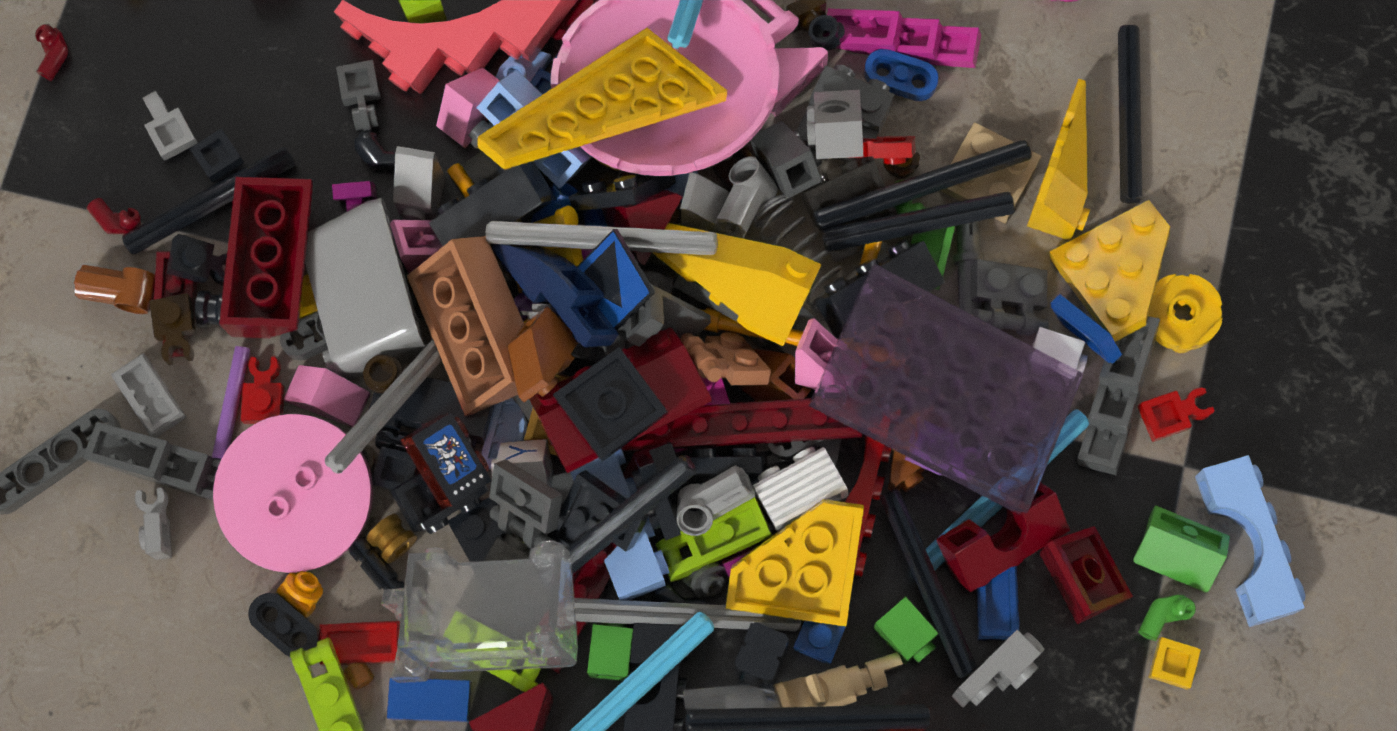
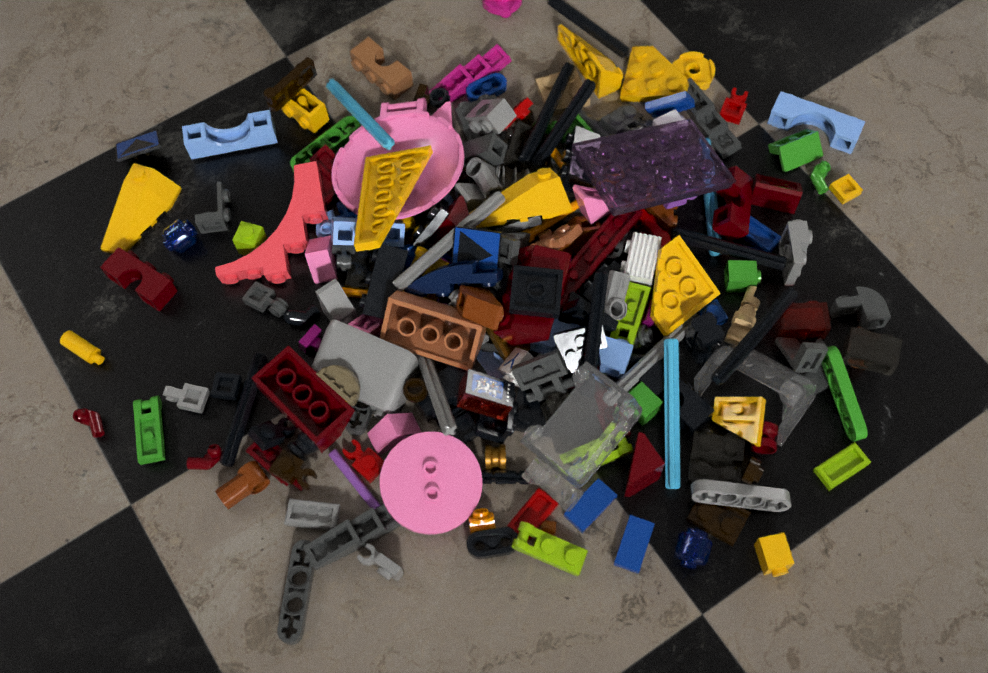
camera: 50 degrees left, 10 degrees down
(94, 123) = (149, 430): none -> bright green plate
(316, 282) = (342, 382): none -> dark tan plate

